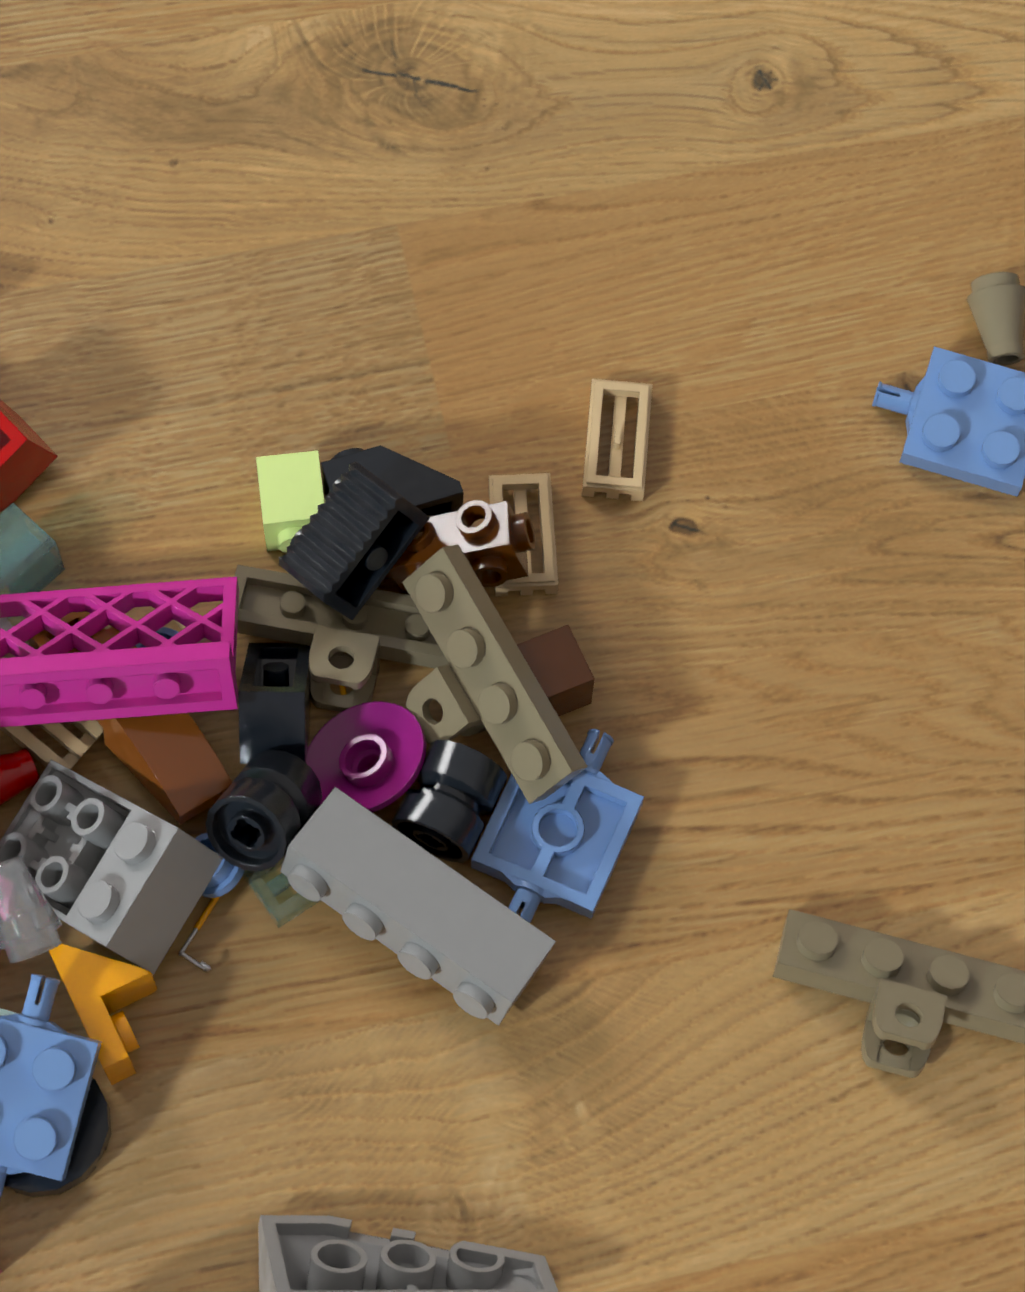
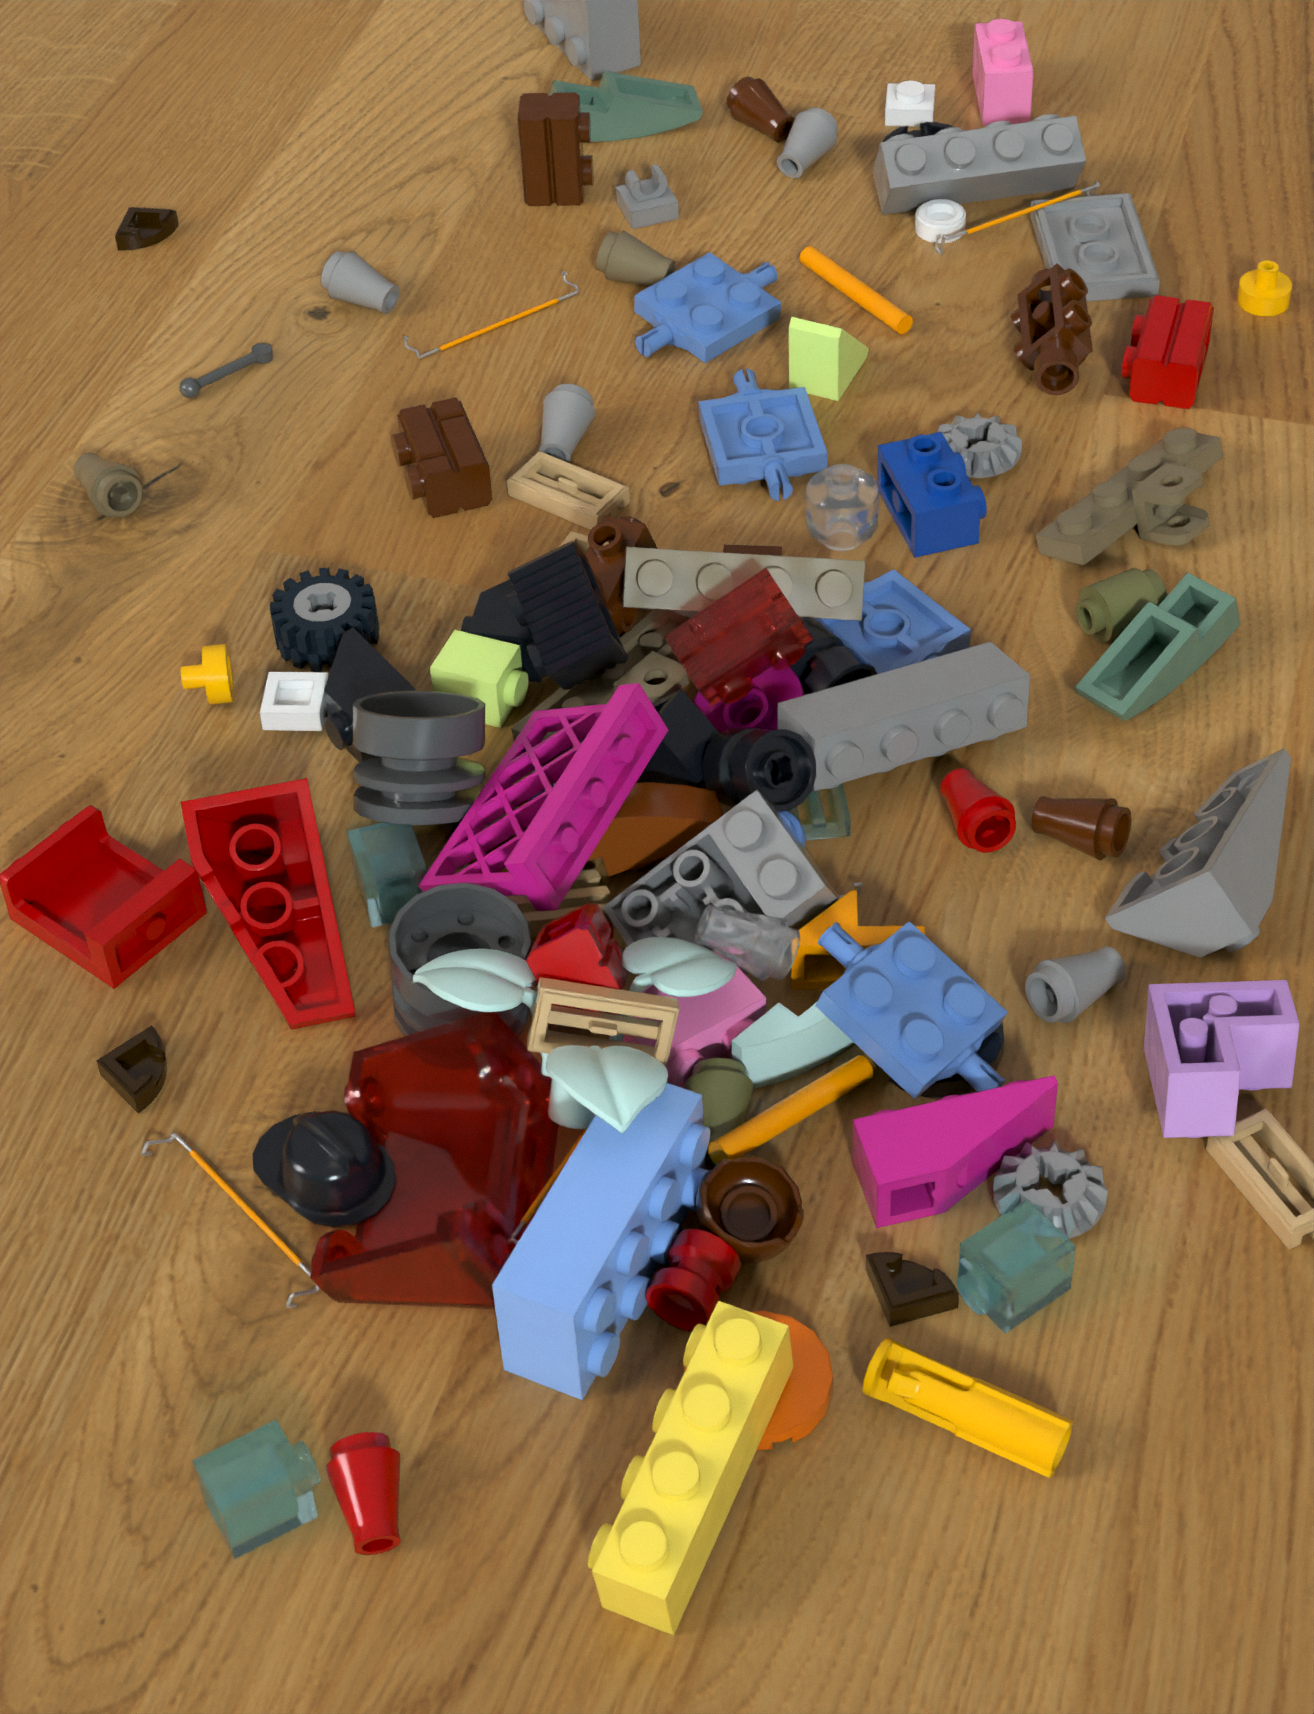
camera: 55 degrees left, 20 degrees down
(120, 510) = (419, 755): none -> dark grey wheel
(159, 1223) = (1070, 984): none -> light grey cone
(185, 283) = (213, 674): none -> yellow tile
(190, 366) = (294, 701): none -> white plate
(215, 423) = (356, 674): none -> black slope
(327, 344) = (316, 613): none -> black wheel
(344, 1032) = (979, 813): none -> red cone
(377, 1142) = (1085, 824): none -> reddish brown cone
(391, 53) = (110, 485): none -> dark tan cone
(404, 710) = (739, 639): none -> clear red brick
(584, 306) = (442, 458): none -> reddish brown brick
(666, 66) = (261, 354): none -> dark grey hinge
(671, 1109) = (1161, 648): none -> sand green slope
(702, 385) = (565, 420): none -> light grey cone
(707, 703) = (842, 507): none -> clear head
(718, 1041) = (1114, 602): none -> olive brick
(787, 777) = (929, 494): none -> blue brick
(792, 574) = (762, 435): none -> medium blue plate
(808, 88) = (357, 282): none -> light grey cone
(844, 245) = (498, 324): none -> light orange piece
(886, 804) = (996, 447): none -> light grey gear
(955, 573) = (823, 358): none -> yellowish green slope

